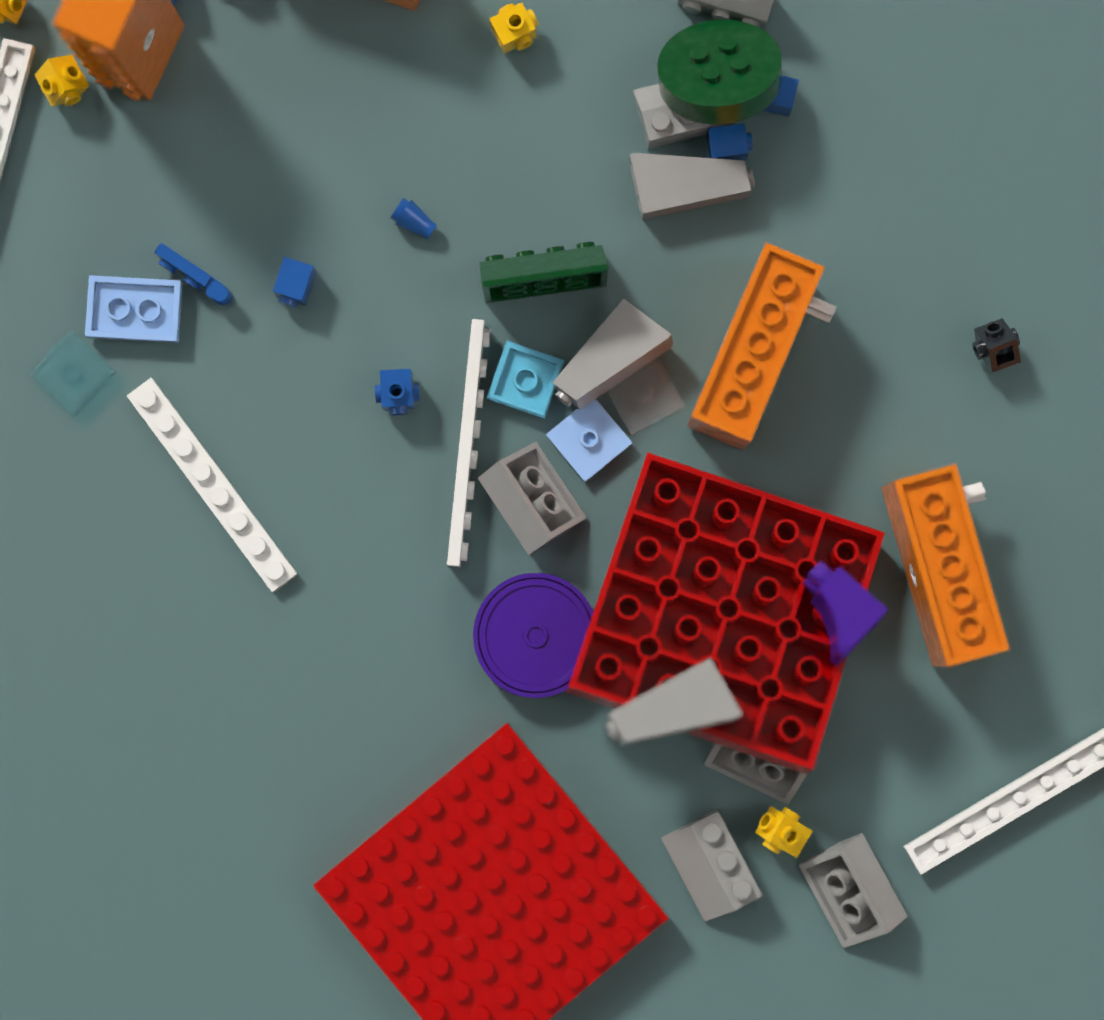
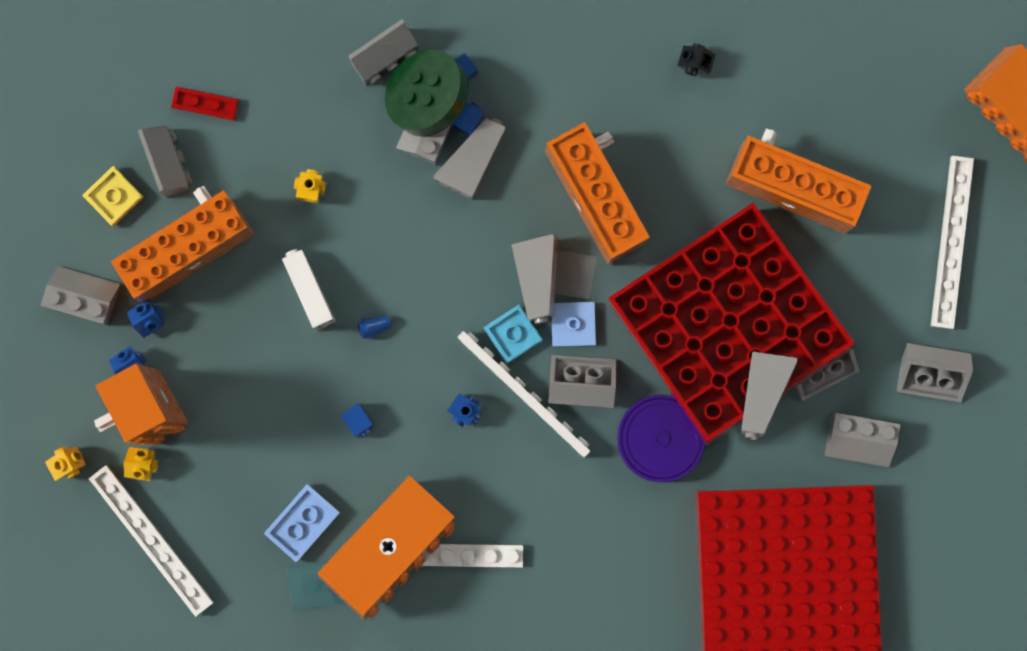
camera: 60 degrees left, 0 degrees up
(129, 411) = (406, 522): none -> orange piece
(194, 275) = (310, 474): blue hinge -> none
(396, 116) = (308, 289): none -> white slope
(543, 273) = (461, 277): dark green slope -> none
(783, 831) = (873, 385): yellow brick -> none
(844, 607) = (780, 257): dark purple hips -> none

